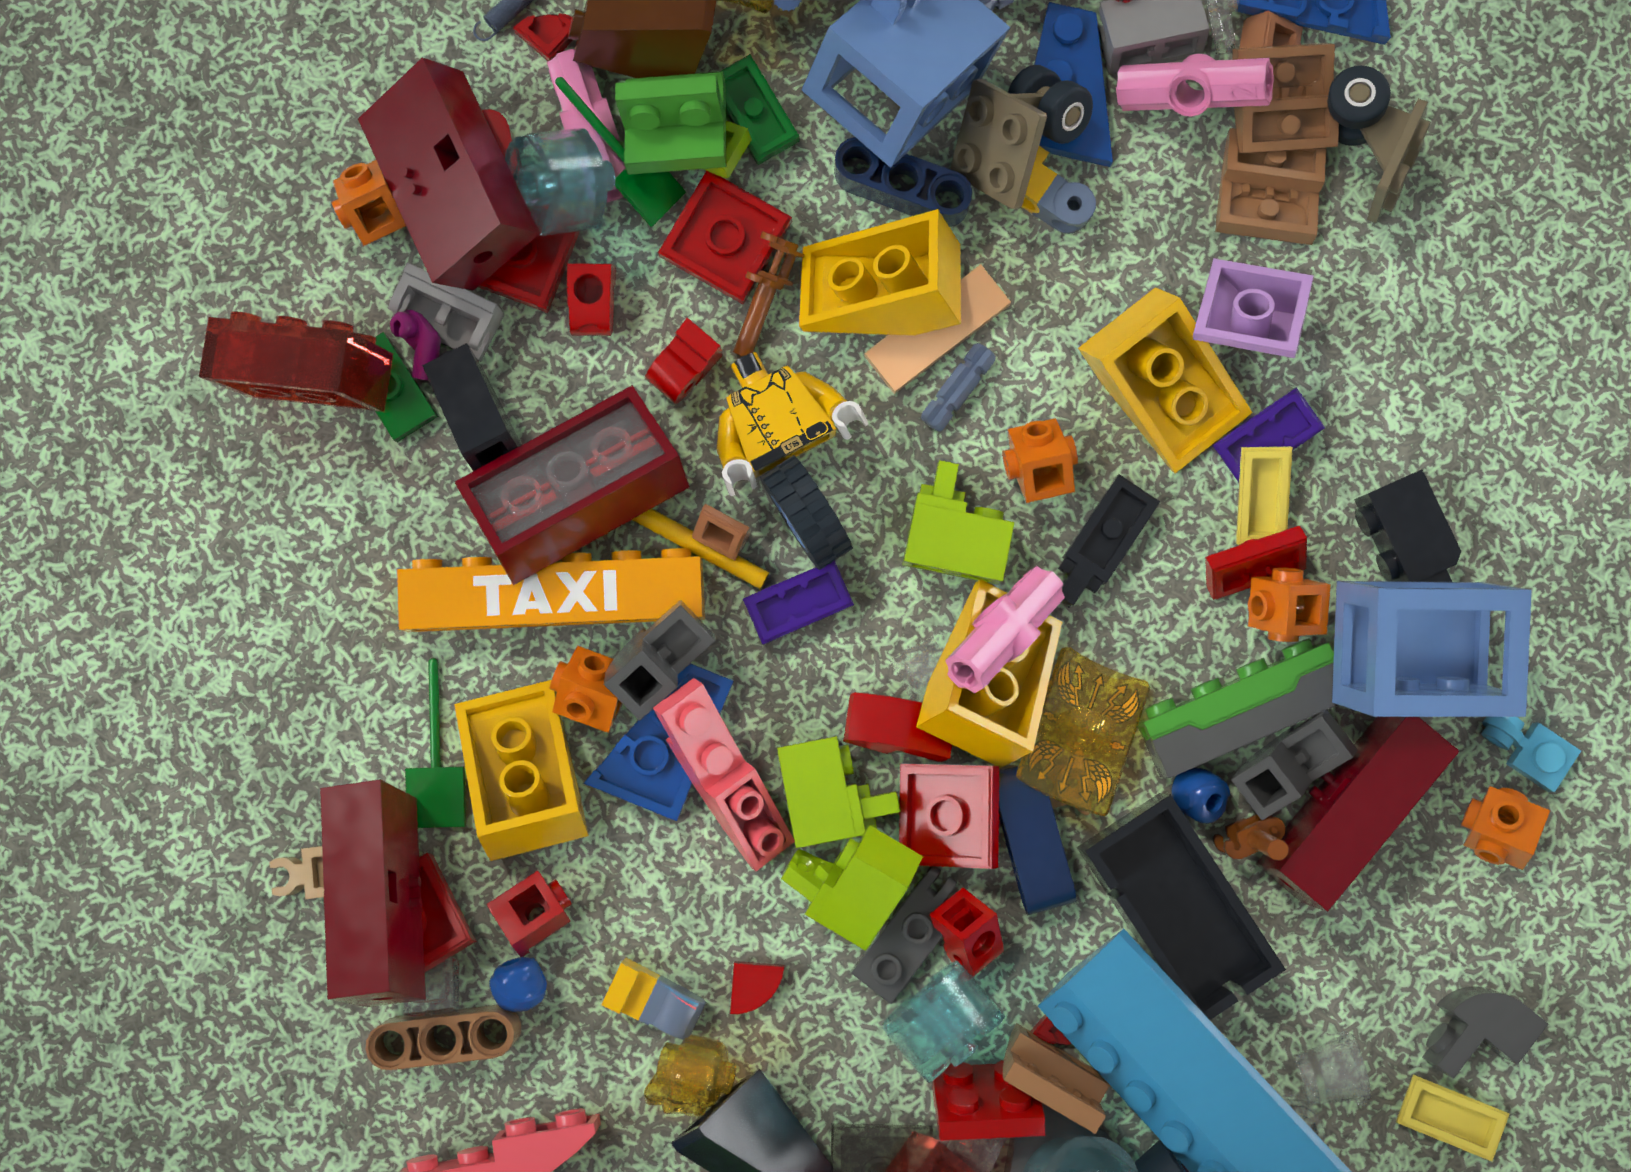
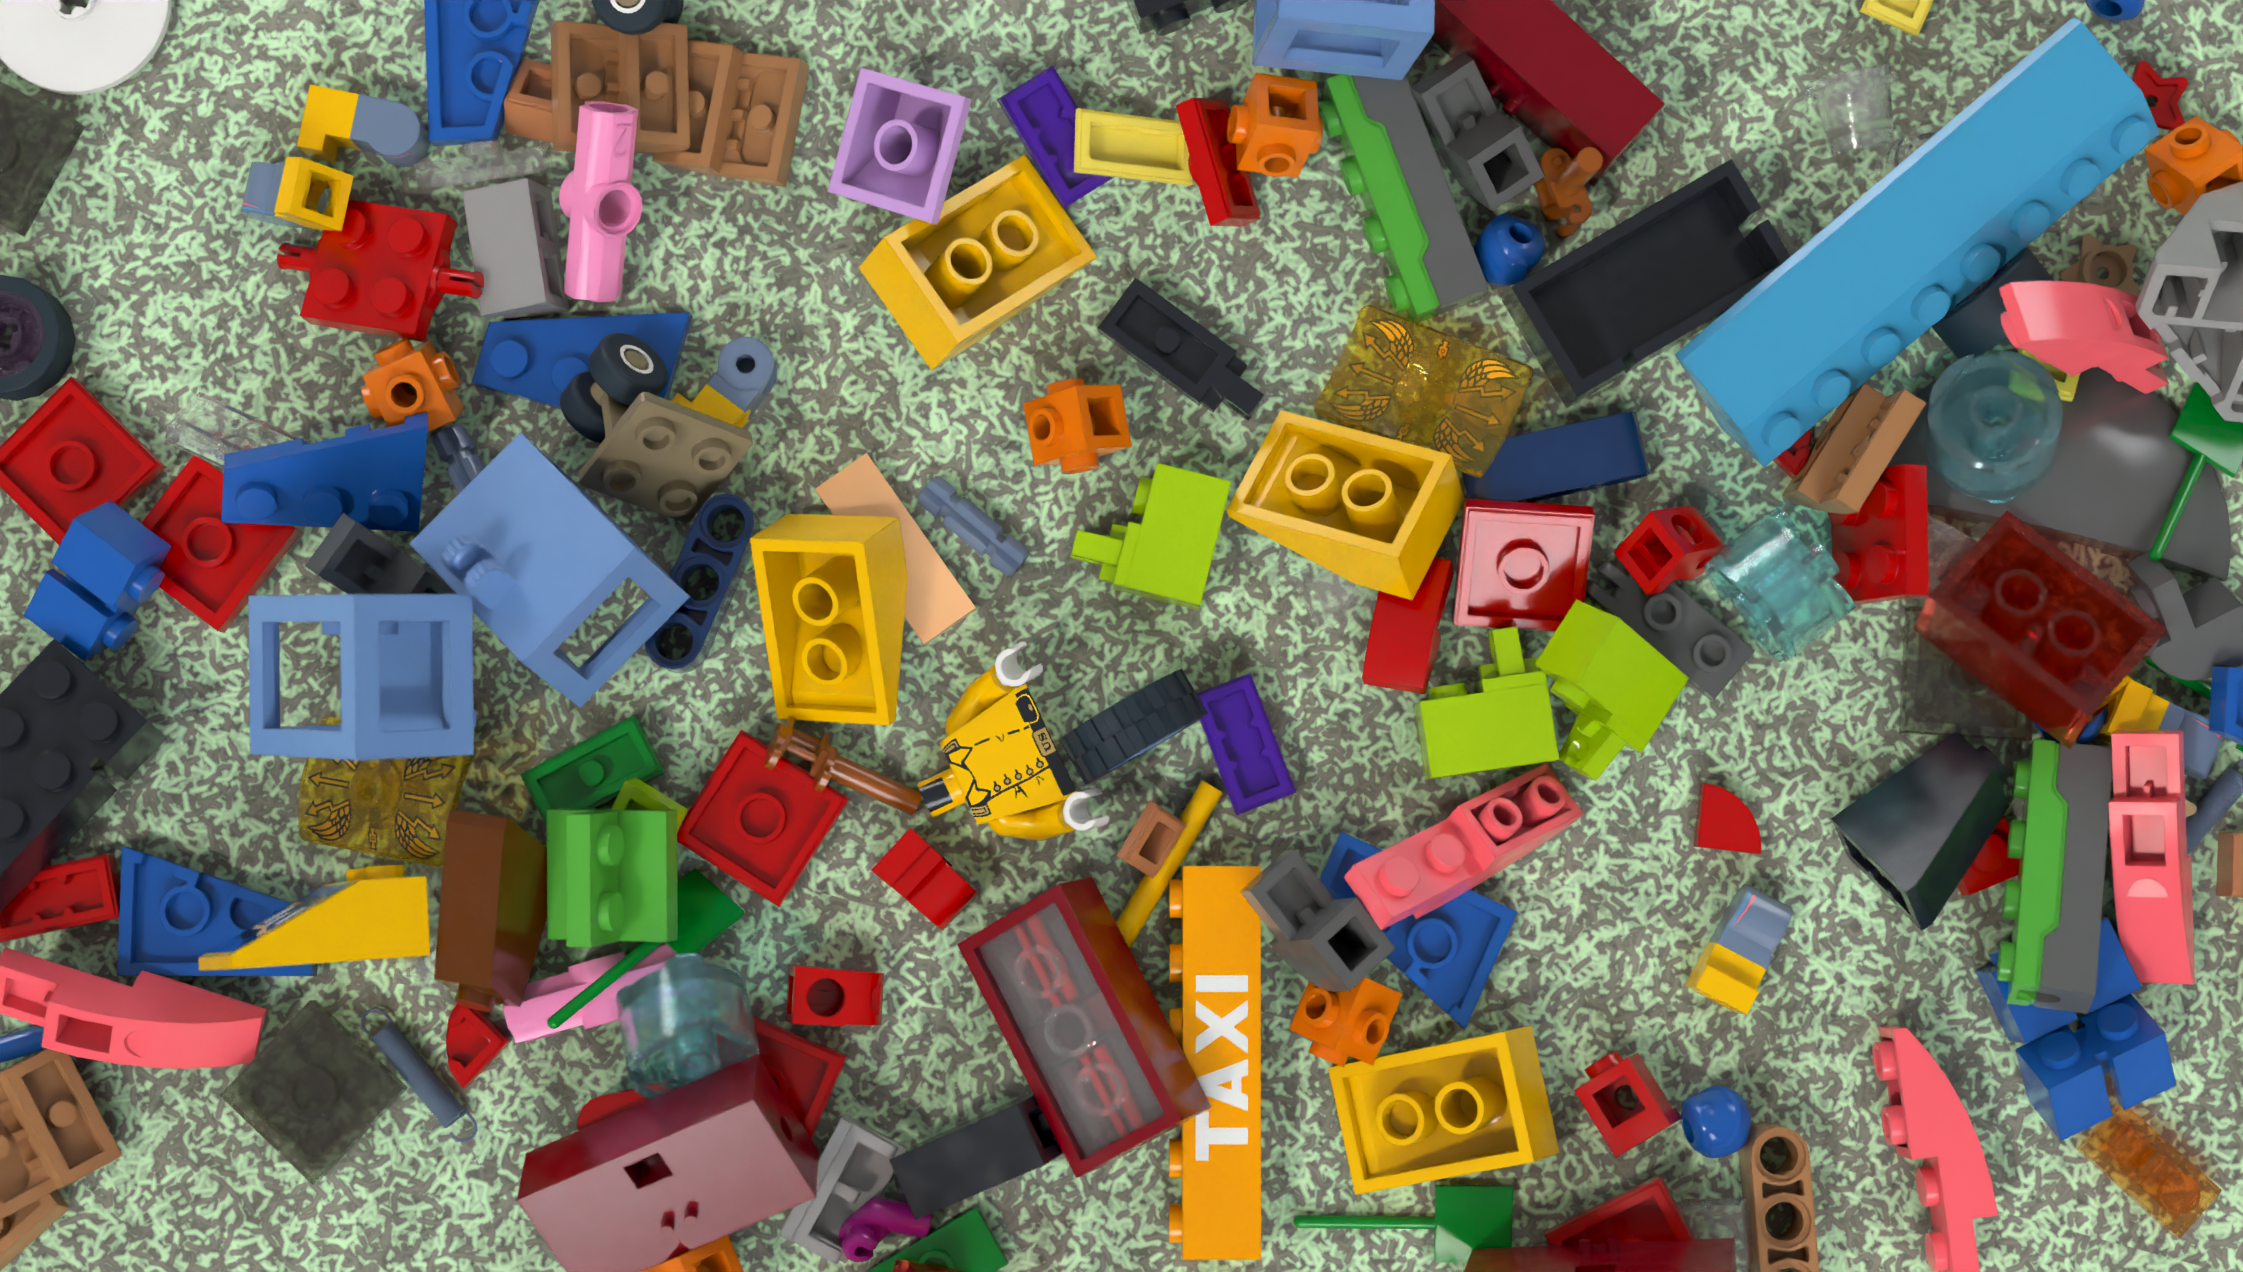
camera: 90 degrees left, 0 degrees up
(691, 1076) = (1839, 905): clear yellow head -> none
(1005, 629) = (1296, 480): bright pink piece -> none

